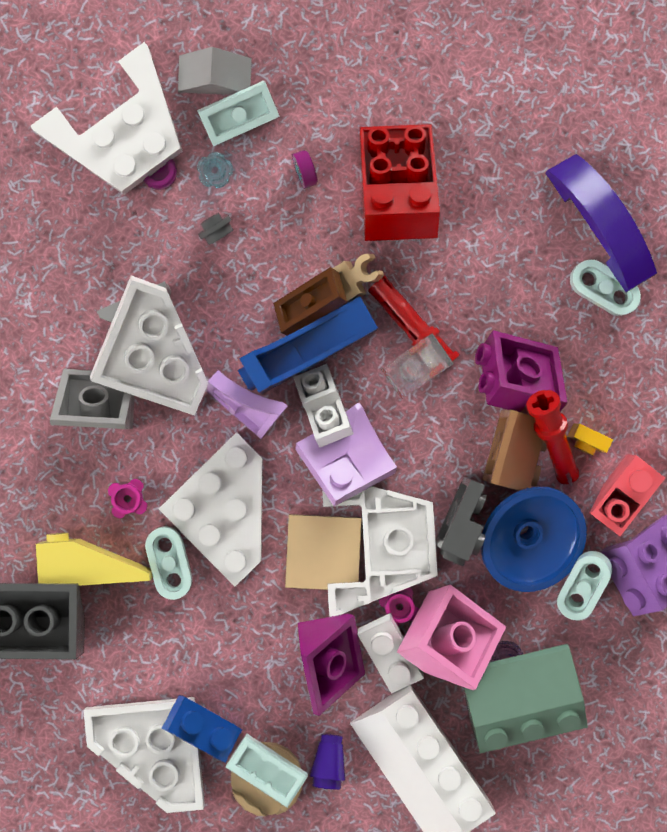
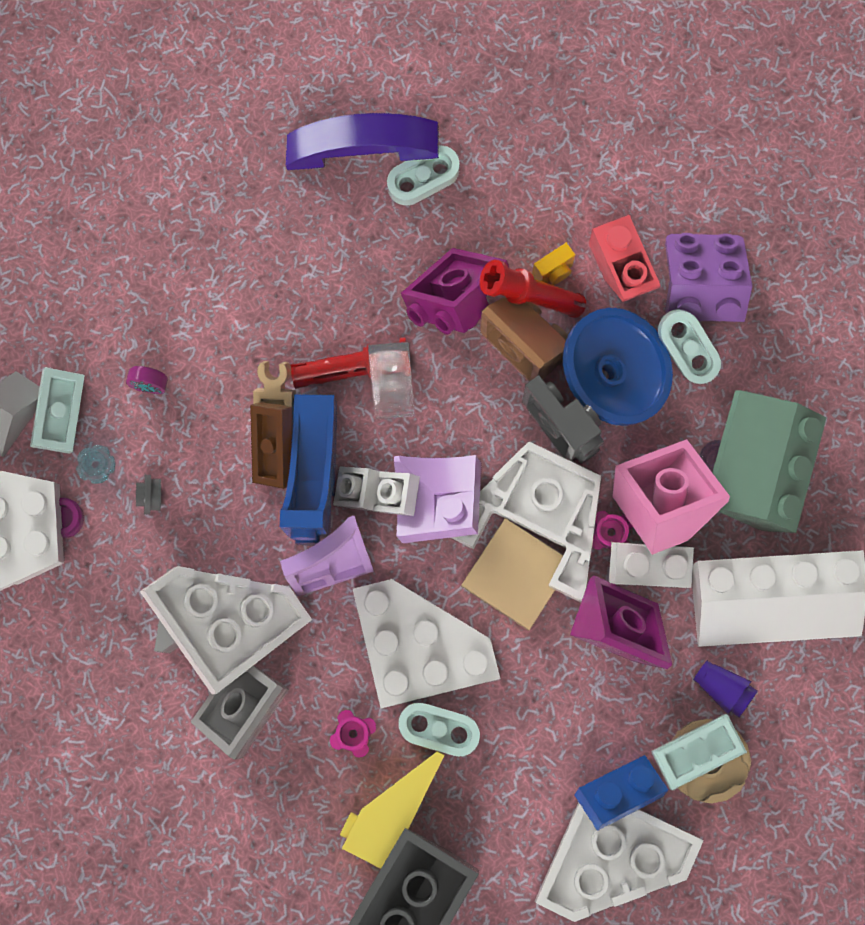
camera: 55 degrees left, 10 degrees down
(399, 183) = (215, 302): red slope -> none

